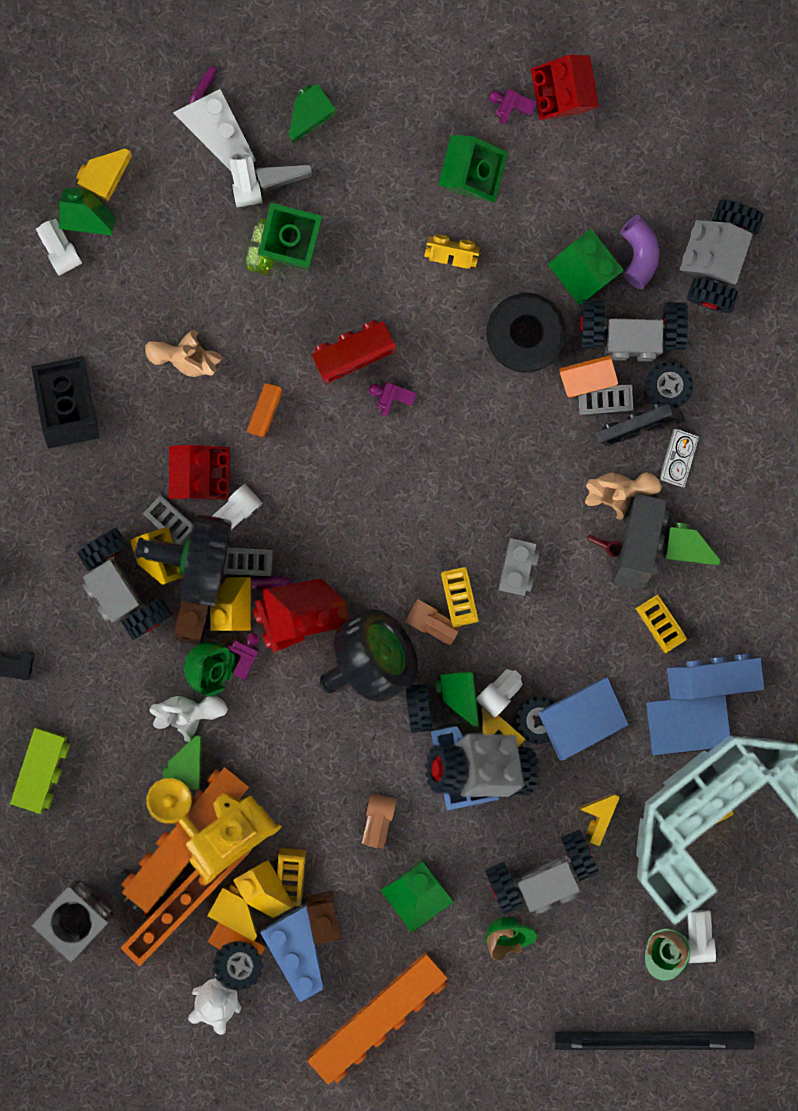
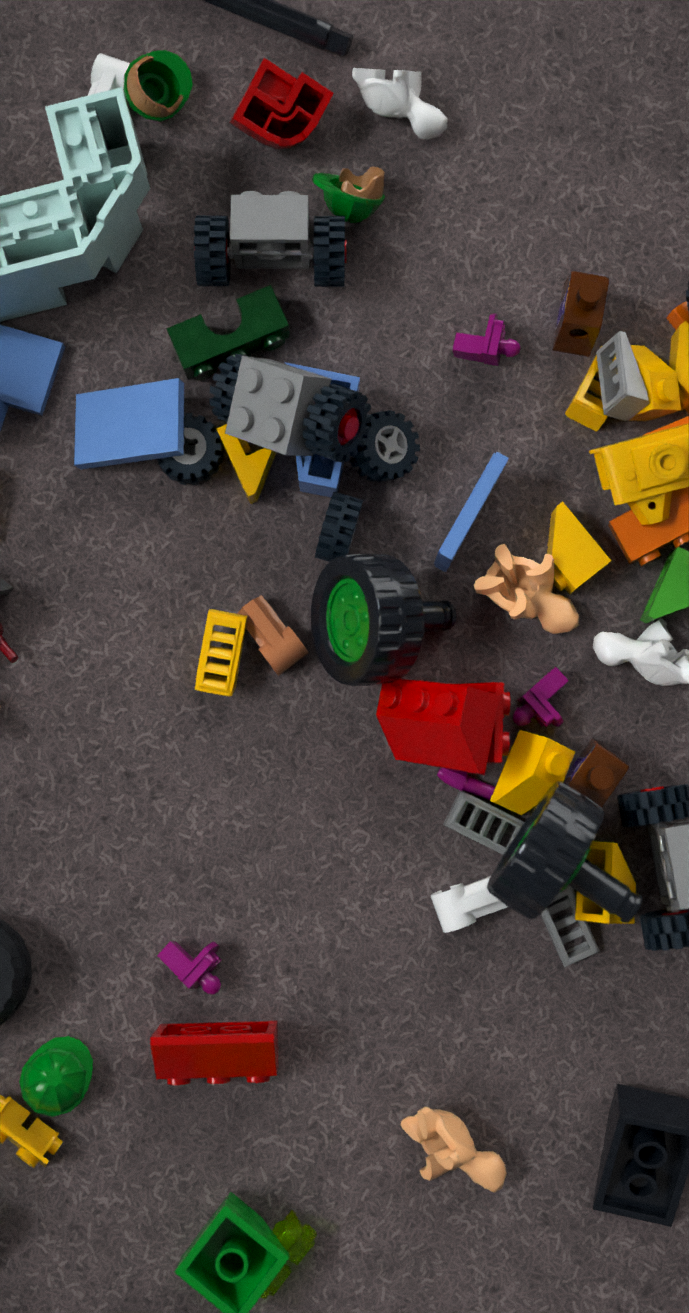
camera: 155 degrees left, 5 degrees down
(199, 472) = (500, 975): red slope -> none
(208, 668) = (598, 702): green cylinder -> none
(264, 758) = (573, 550): none -> yellow slope
(265, 410) = (373, 1021): orange slope -> none
(280, 883) = (620, 380): none -> light grey slope
(284, 720) = (526, 591): none -> light nougat animal
(295, 952) = (637, 285): medium blue wedge -> none
(339, 754) = (470, 511): none -> medium blue tile
(373, 871) = (487, 348): none -> magenta piece
(377, 1018) = (563, 162): orange brick -> none
(379, 814) = (451, 415): nougat piece -> none
(405, 780) = (396, 442): none -> black wheel
(417, 895) = (445, 297): green slope -> none
(445, 294) = (57, 1076): none -> green piece
(459, 694) = (275, 524): green slope -> none
(498, 694) = (226, 501): white piece -> none
(505, 1016) = (400, 99): none -> white animal
(517, 567) = (125, 659): light grey brick -> none
(527, 821) = (203, 351): none -> dark green arch
(580, 971) = (279, 107): none -> red brick
(603, 809) = (157, 298): yellow slope -> none

